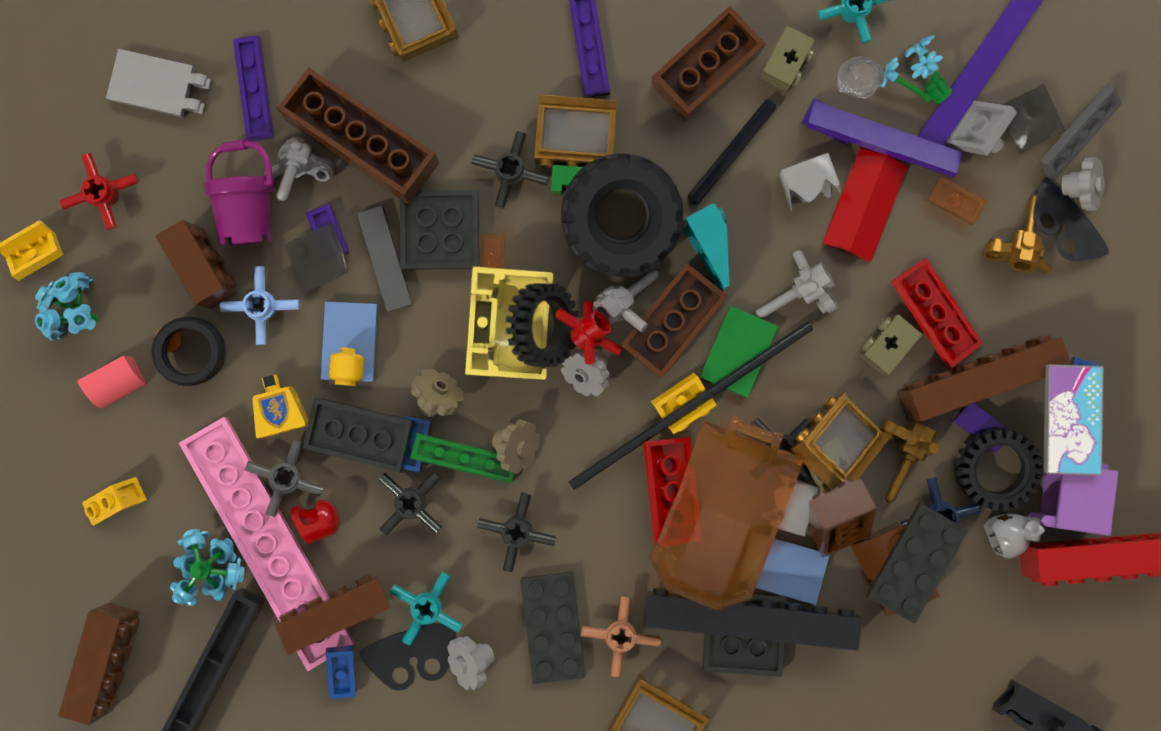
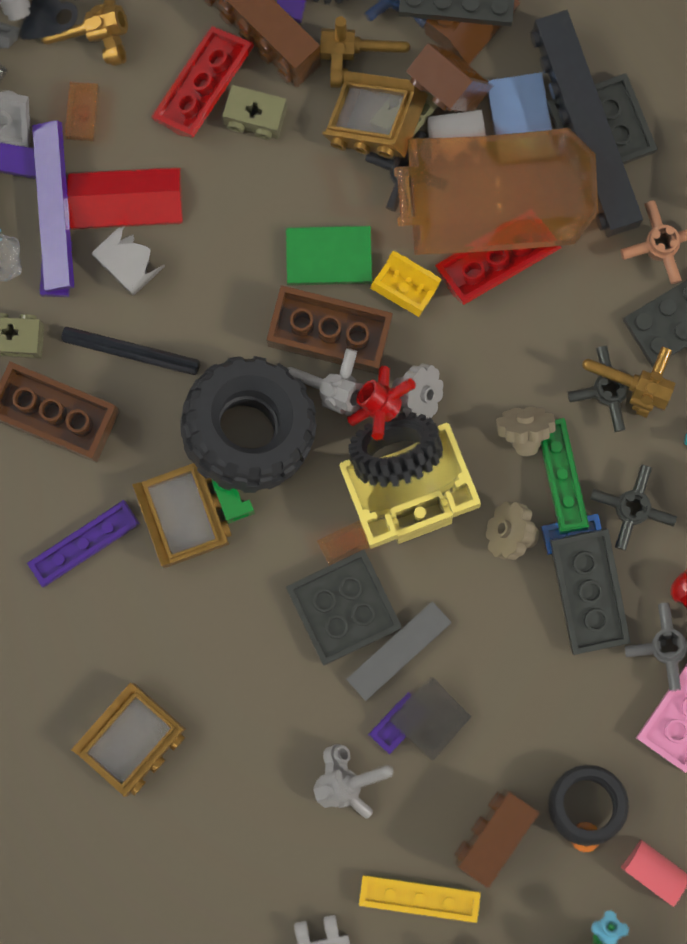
camera: 115 degrees left, 5 degrees down
(180, 185) = (419, 898): none -> yellow plate
(241, 203) = (410, 819): magenta piece -> none
(253, 88) = (283, 872): dark purple tile -> none
(254, 297) = (517, 758): light blue bar -> none
(277, 409) = (603, 686): torso -> none
(346, 367) = (528, 633): yellow head -> none
(350, 327) = (500, 647): medium blue tile -> none
(358, 135) = (286, 732): reddish brown brick -> none
(499, 560) = (648, 388): none -> pearl gold piece
(504, 162) = (252, 576): pearl dark grey bar -> none
(691, 405) = (405, 276): black piece -> none
(709, 239) = (233, 327): teal slope -> none
(809, 284) = (231, 212): light grey piece -> none

